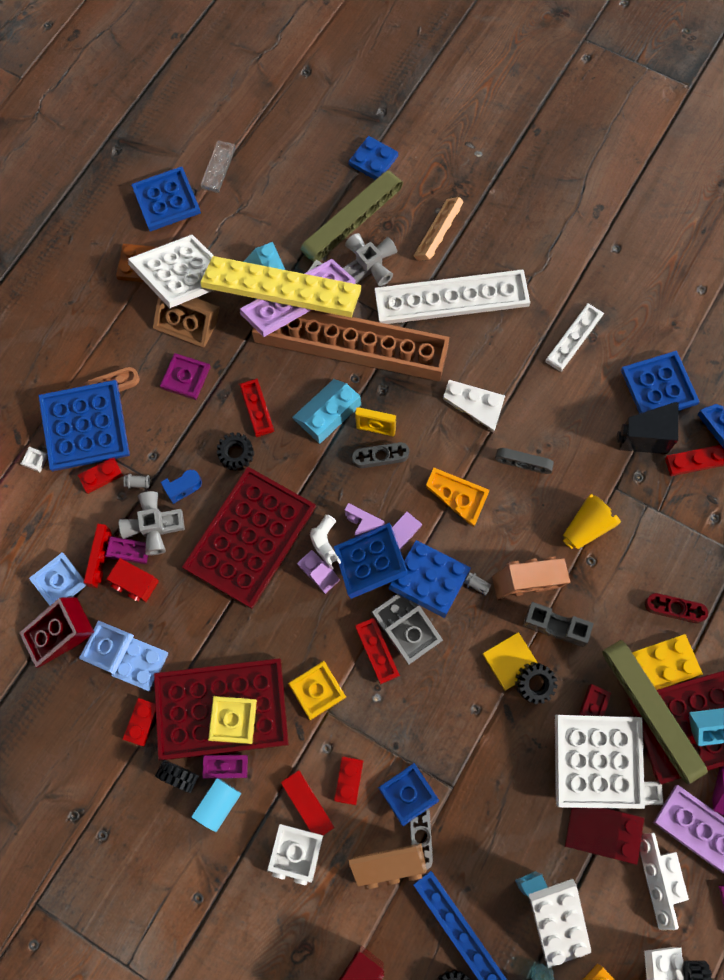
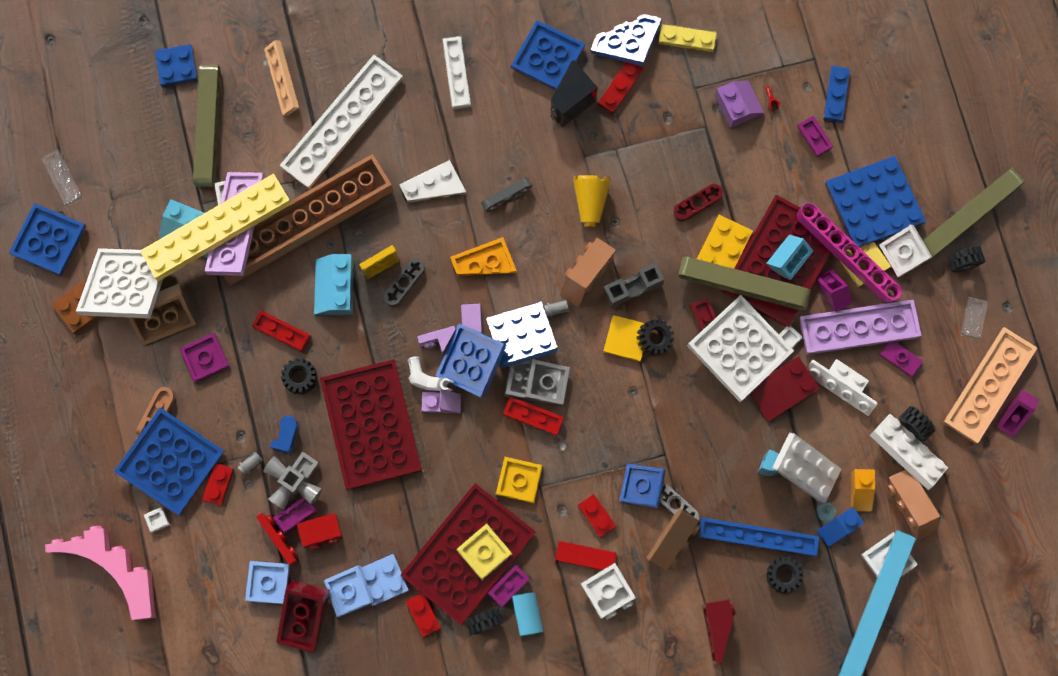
camera: 45 degrees left, 5 degrees up
(370, 259) = (254, 147): light grey brick -> none

